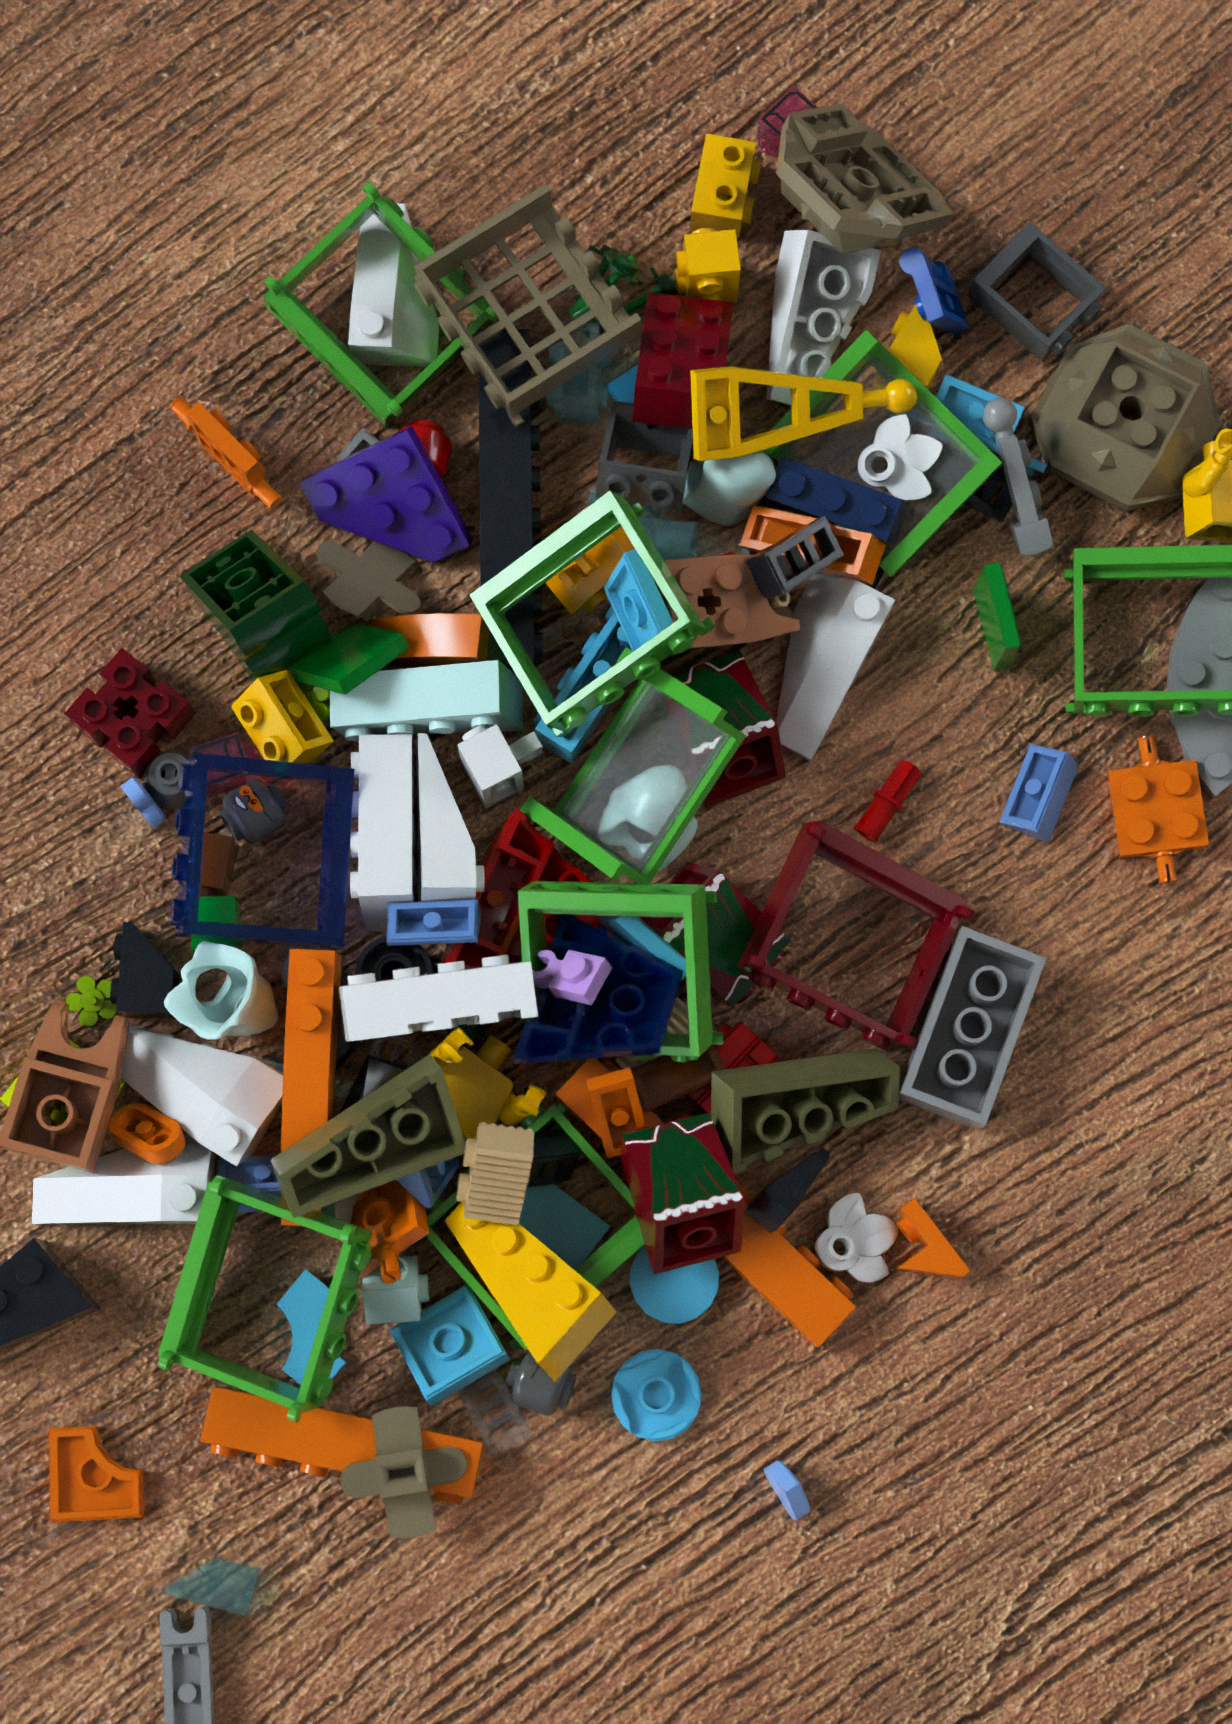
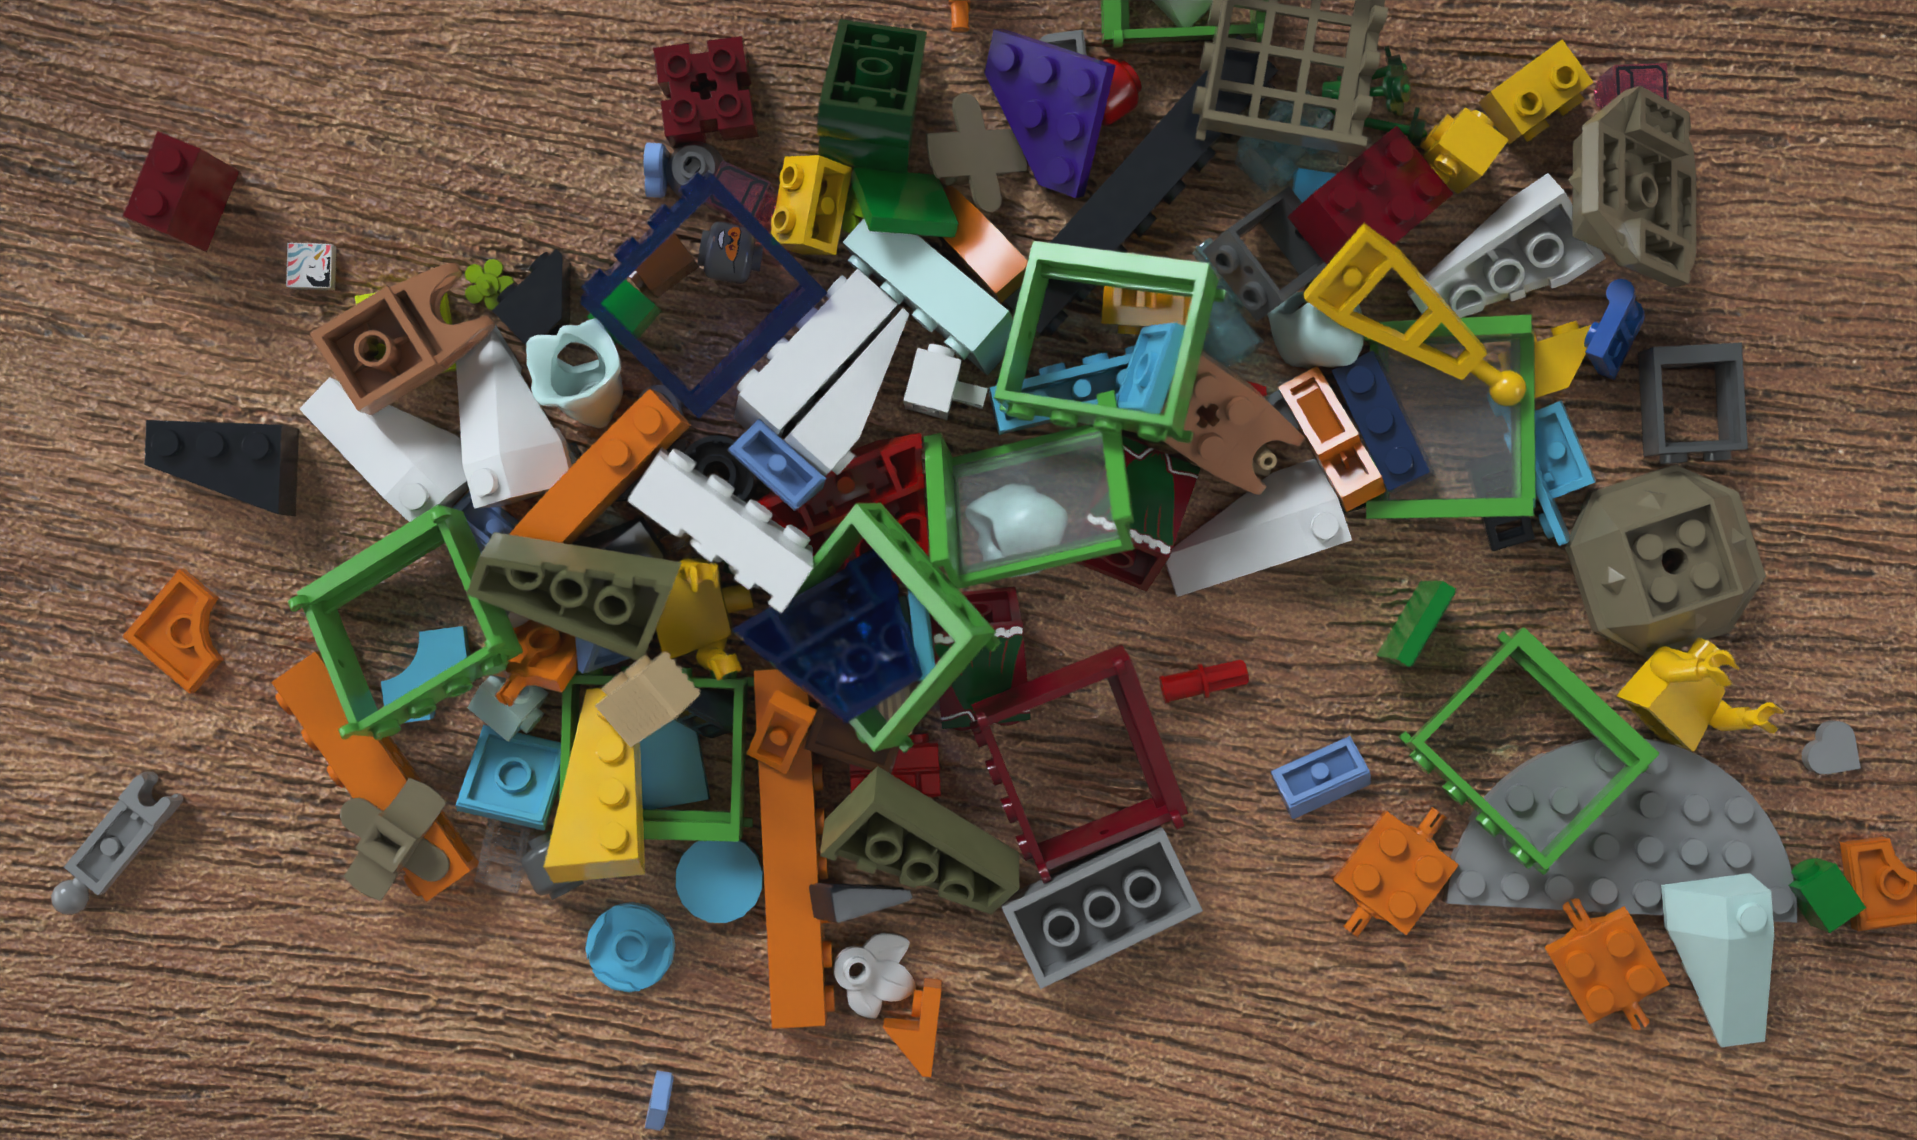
camera: 50 degrees right, 10 degrees up
(147, 1133) = (435, 422): orange plate -> none
(218, 1585) = (200, 790): clear light blue tile -> none
(573, 978) = (838, 606): lavender plate -> none
(683, 1192) = (774, 832): slope -> none
(771, 569) = (1278, 436): black slope -> none
(906, 457) = (1465, 441): white plate -> none
(1030, 526) = (1509, 575): light grey plate -> none

